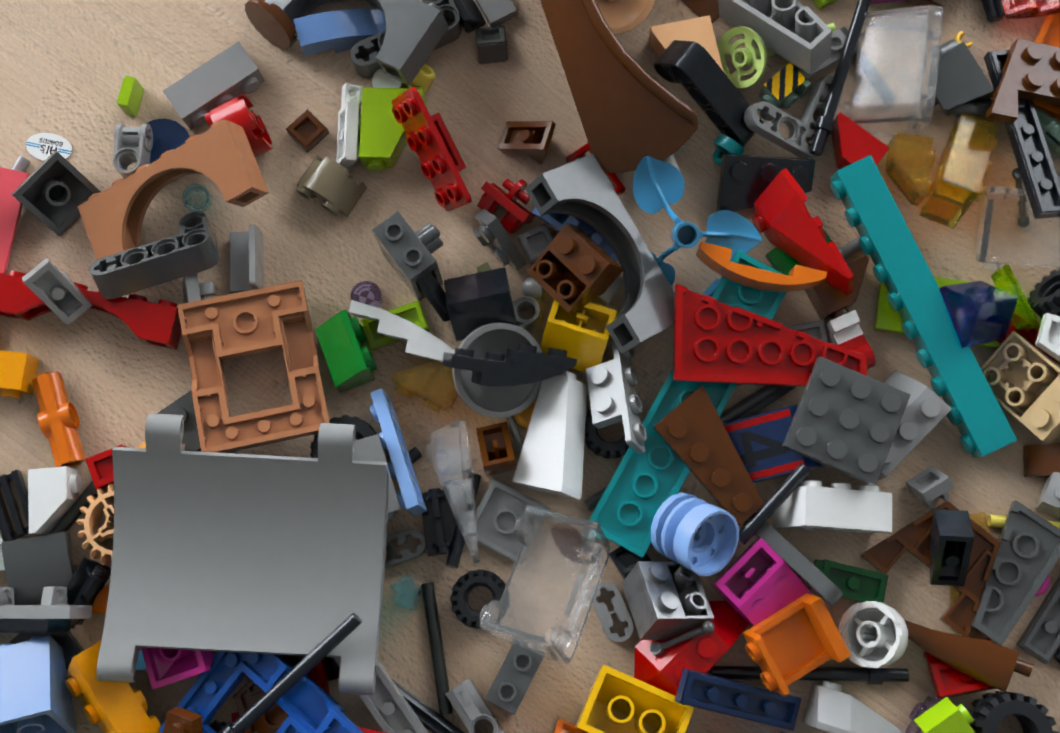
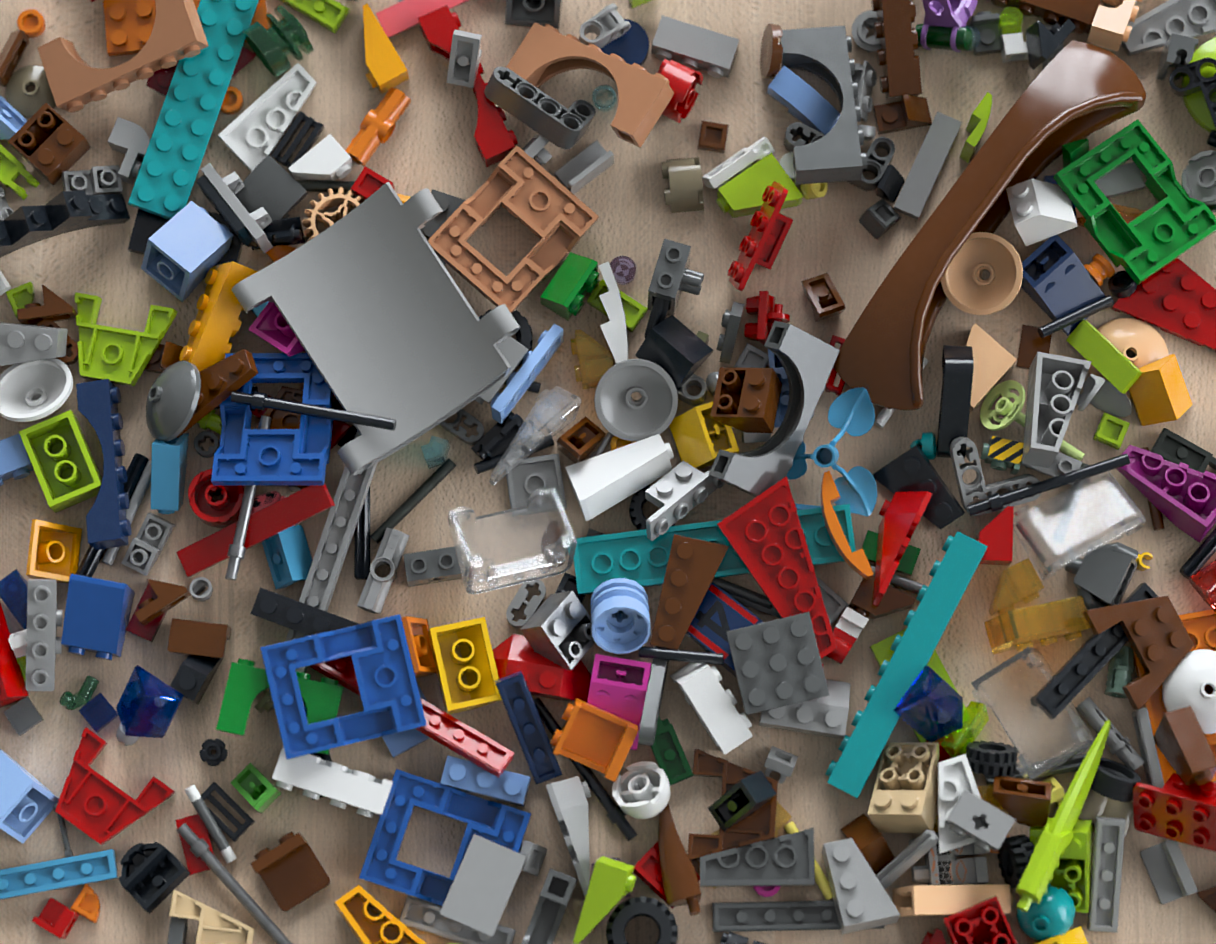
camera: 50 degrees right, 0 degrees up
(464, 585) = (471, 488): black tyre -> none
(518, 368) = (648, 413): black slope -> none
(658, 648) = (522, 647): dark grey hinge -> none

